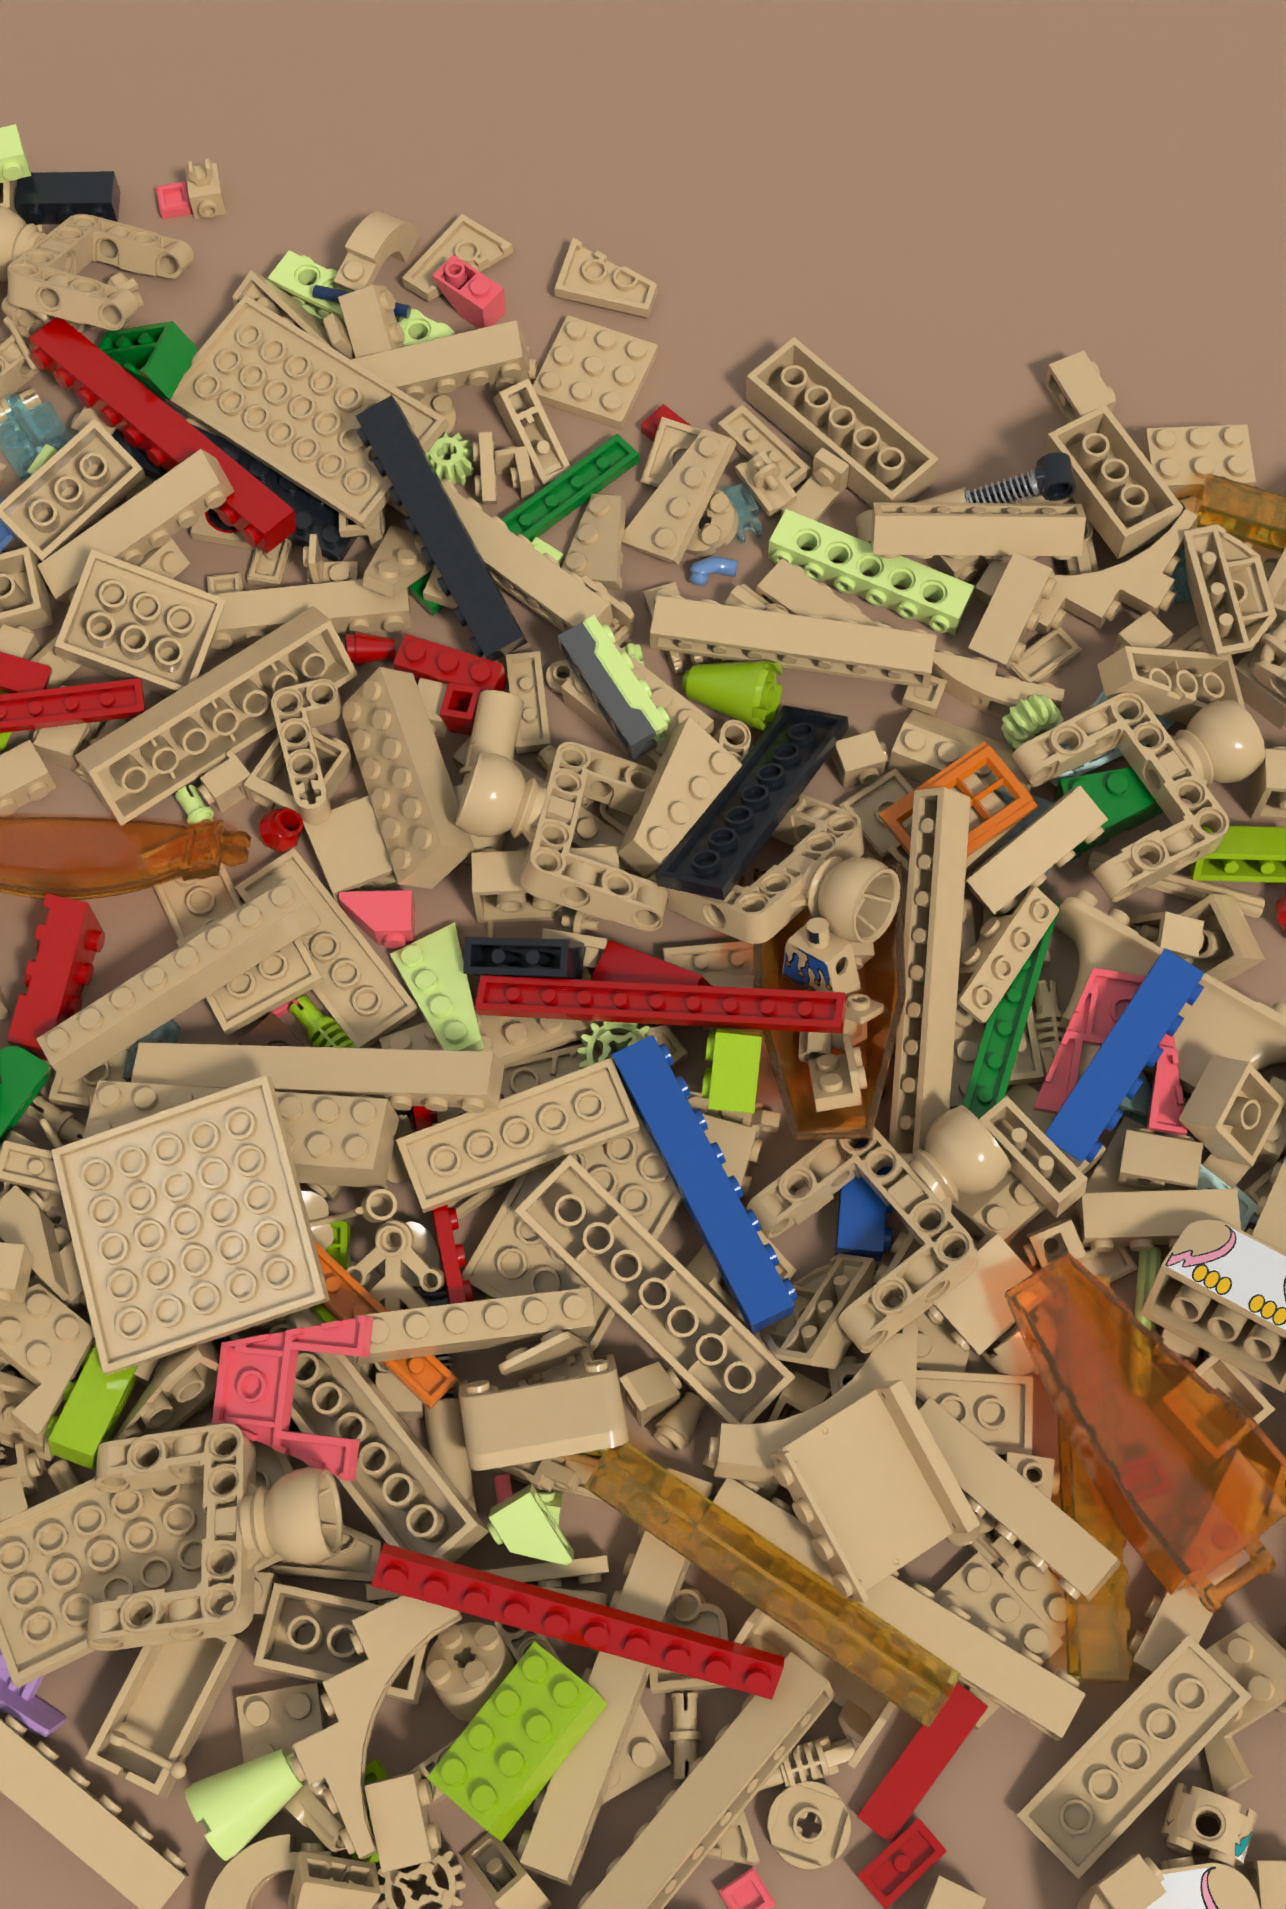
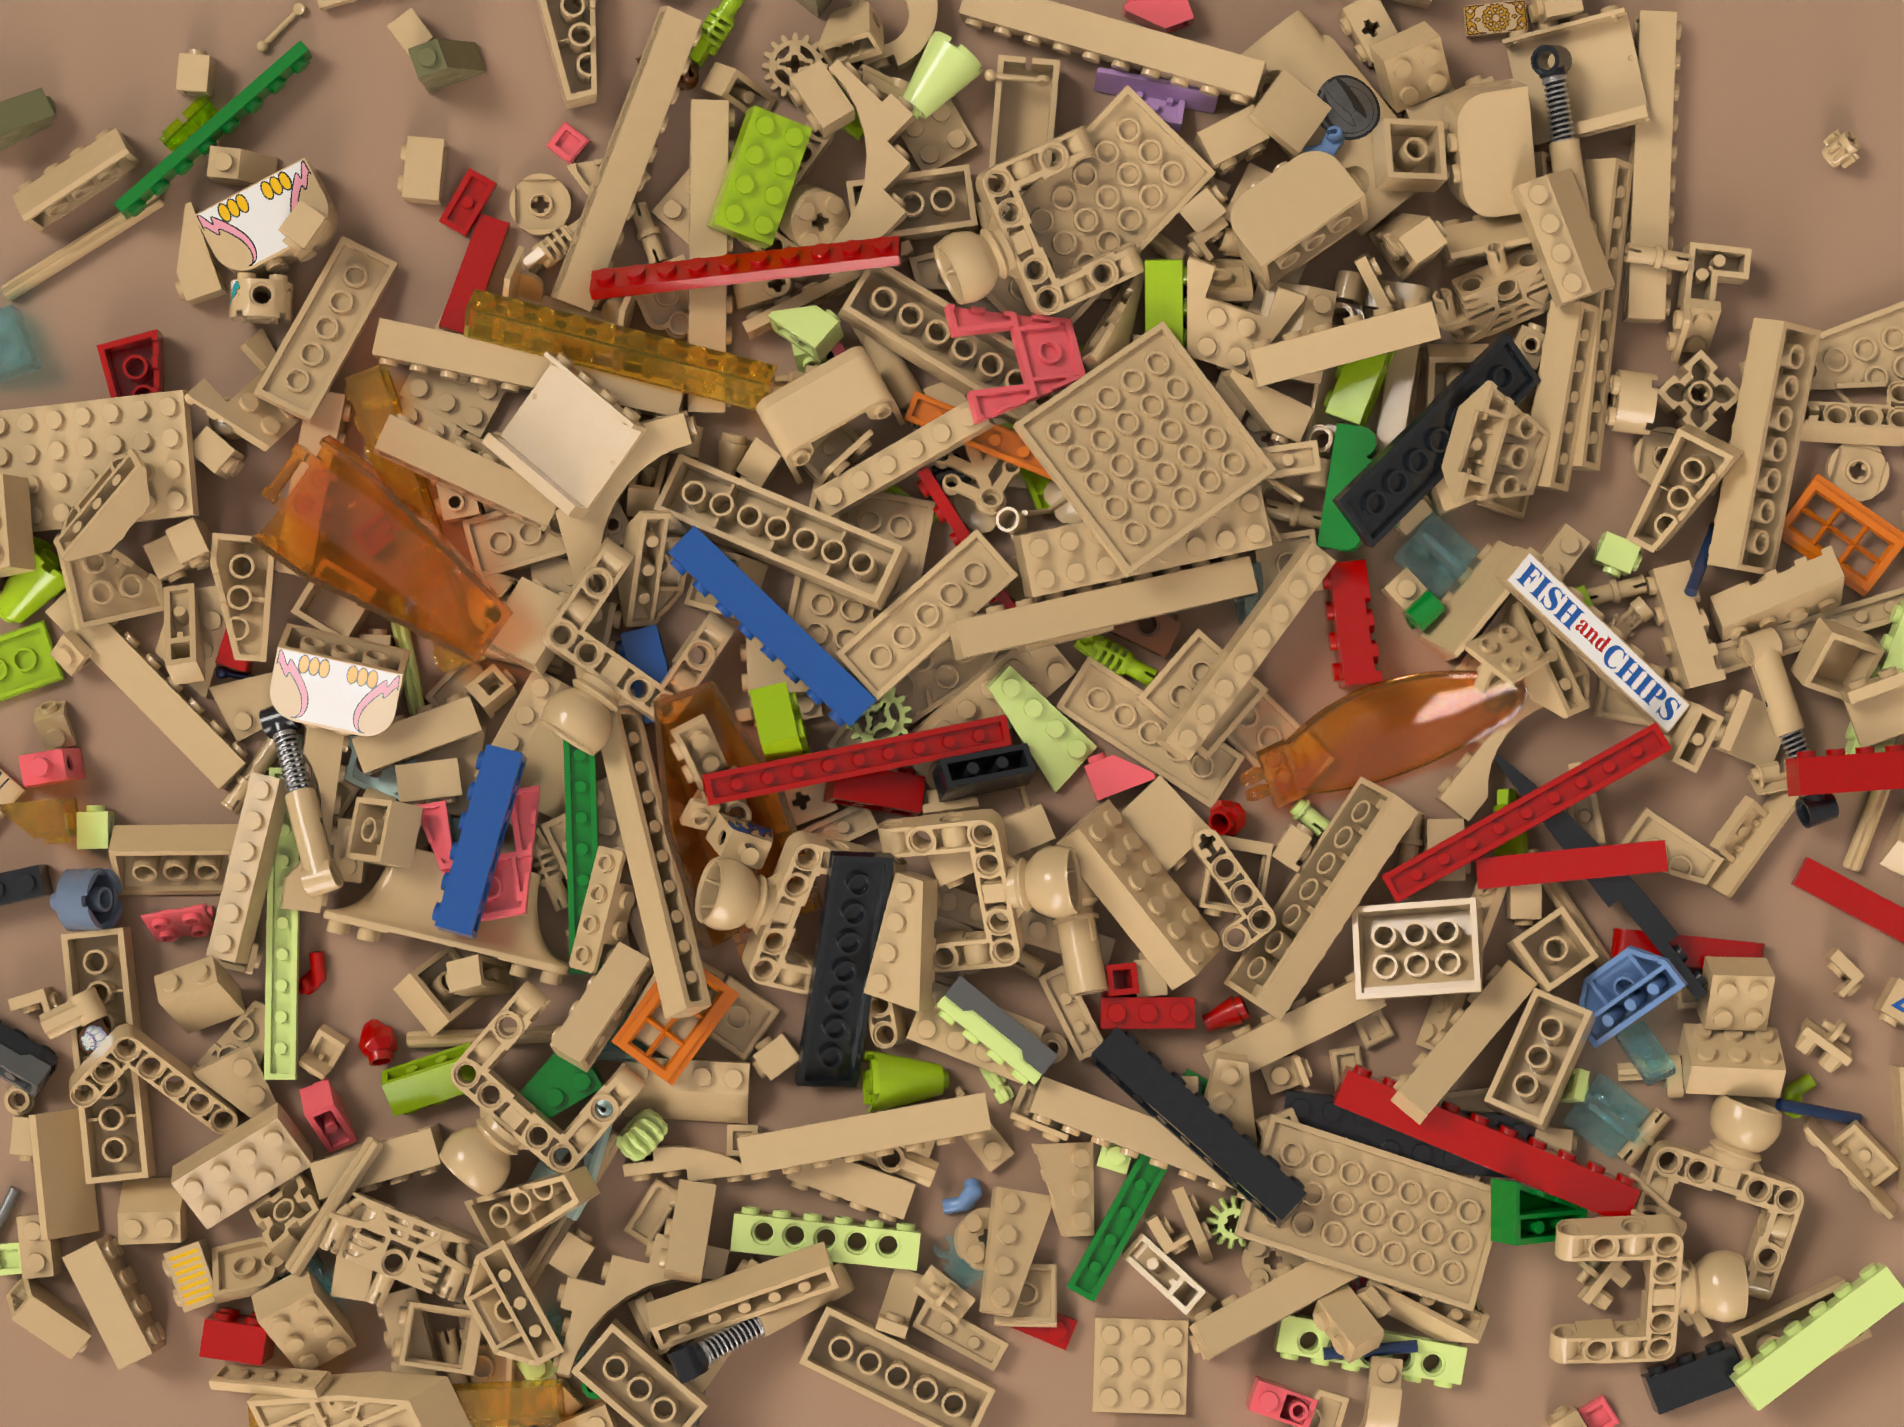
camera: 155 degrees right, 20 degrees up
(1035, 1157) = (527, 736): tan brick -> none

